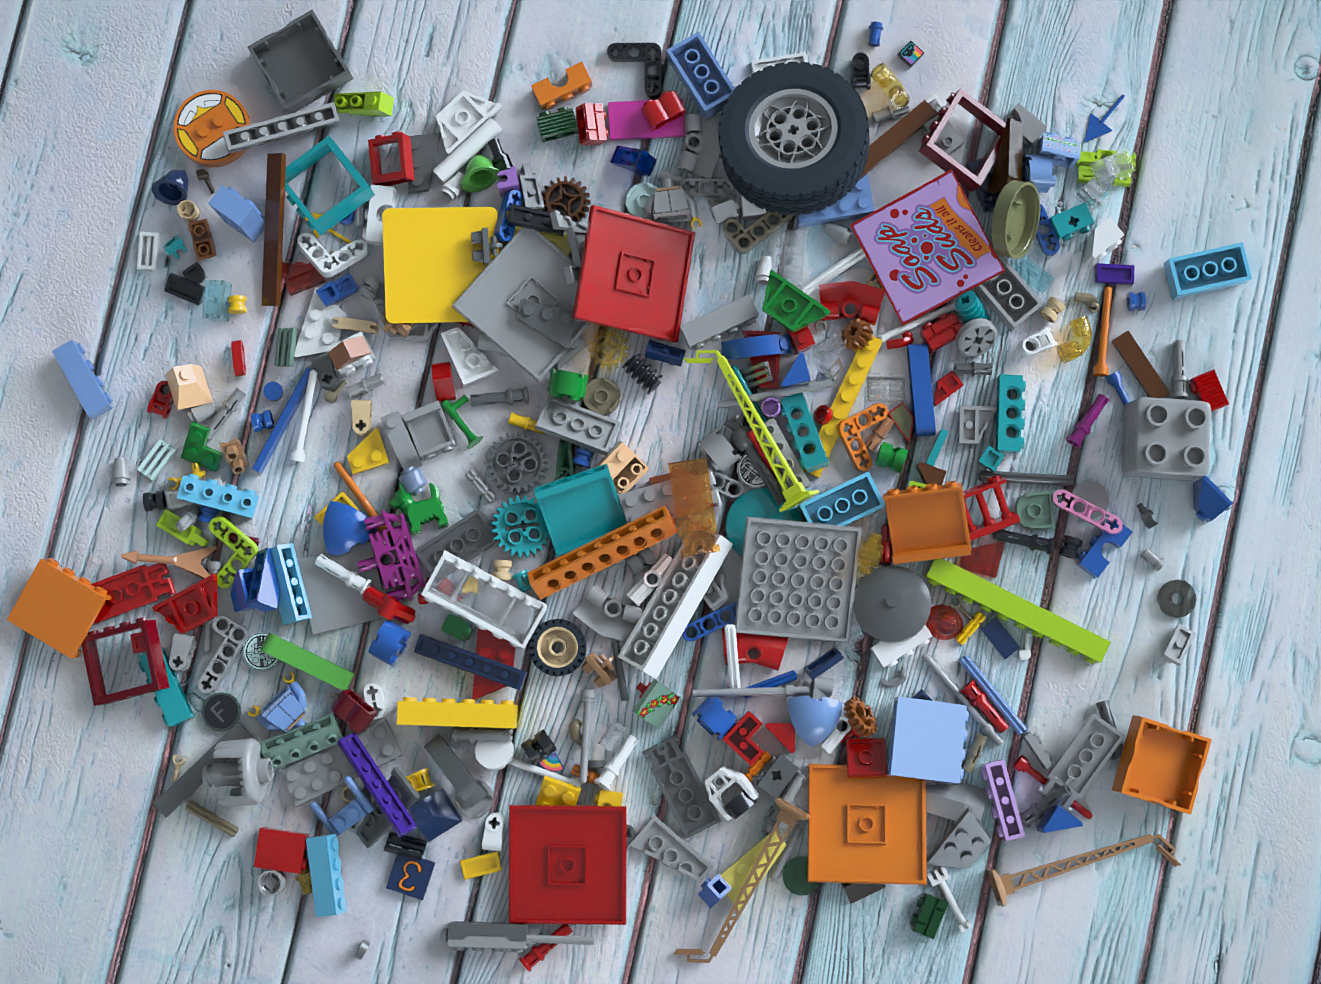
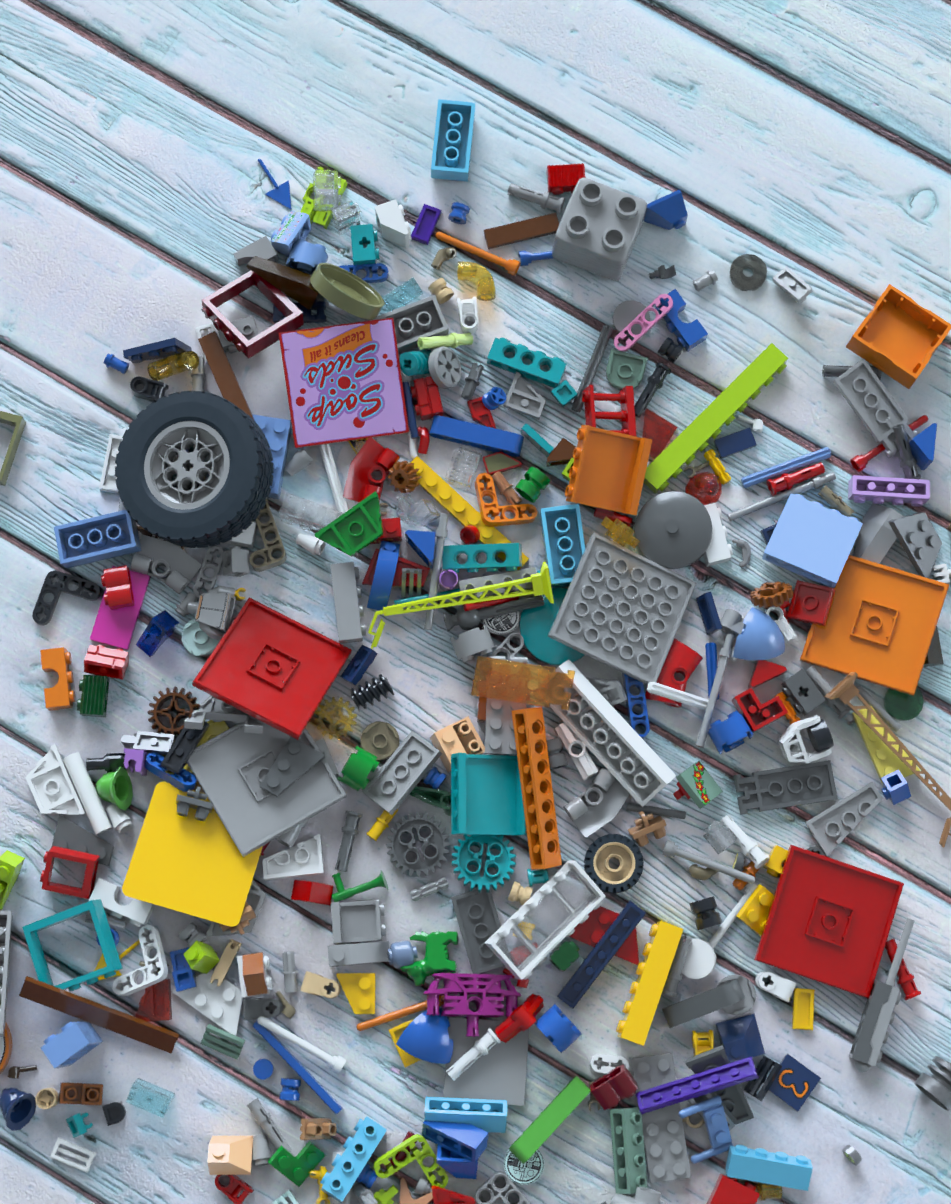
camera: 75 degrees left, 5 degrees down
(185, 289) = (126, 1127): black tile -> none
(237, 304) = (161, 1078): yellow wheel -> none
(238, 358) = (217, 1093): red beam -> none
(284, 709) = (590, 1158): medium blue torso -> none
(352, 302) = (201, 957): none -> lime brick
(552, 763) = (725, 905): tile -> none
(899, 65) = (156, 350): none -> dark blue wing
(910, 54) = (147, 335): tile -> none
(923, 319) = (410, 411): none -> dark blue bar
(964, 399) = (494, 398): none -> blue wheel
(1006, 336) = (452, 340): none -> yellowish green pin
(1042, 756) = (843, 445): light grey plate -> none
(1083, 427) = (561, 301): magenta pin -> none

